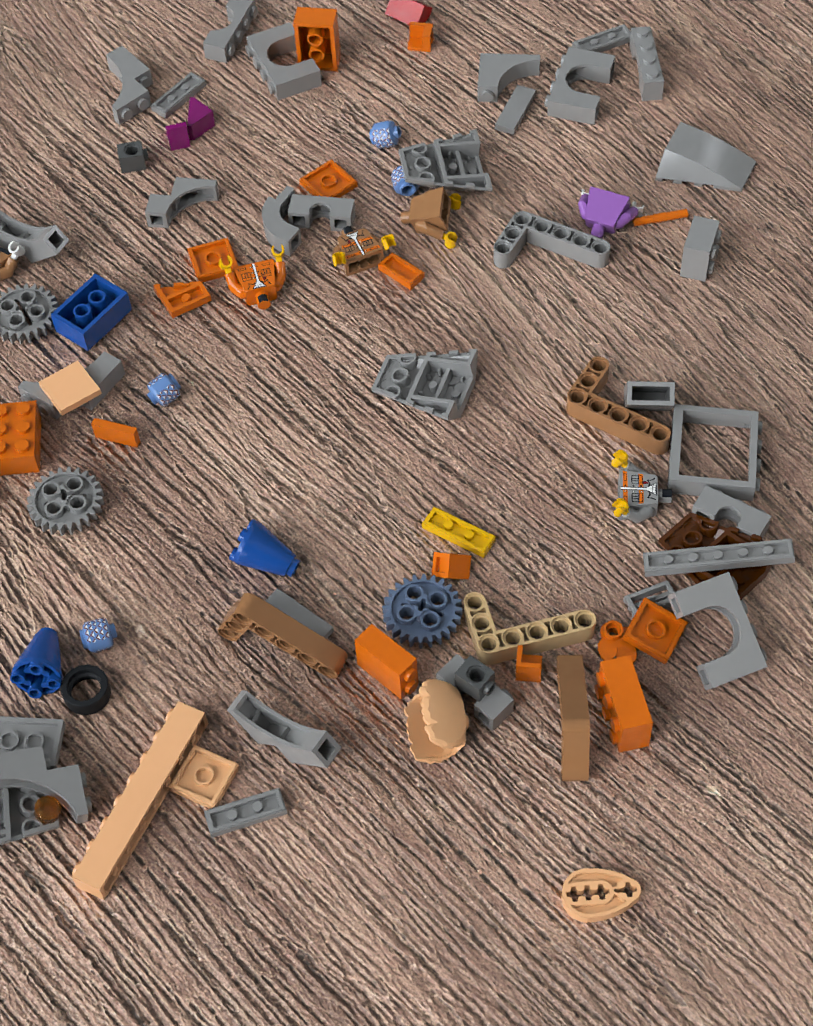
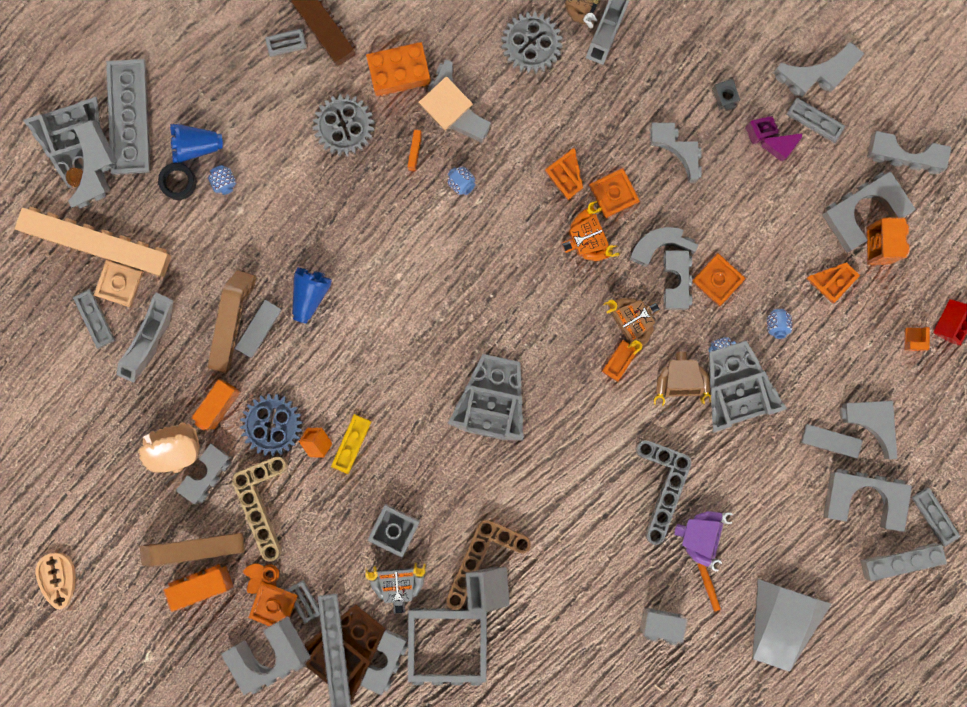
camera: 80 degrees right, 30 degrees up
(91, 312) = (535, 101): blue brick -> none
(349, 92) = (834, 281): none -> orange wing
(475, 669) = (209, 471): dark grey brick -> none
(528, 666) = (231, 512): orange panel -> none
(570, 488) = (393, 530): none -> light grey brick

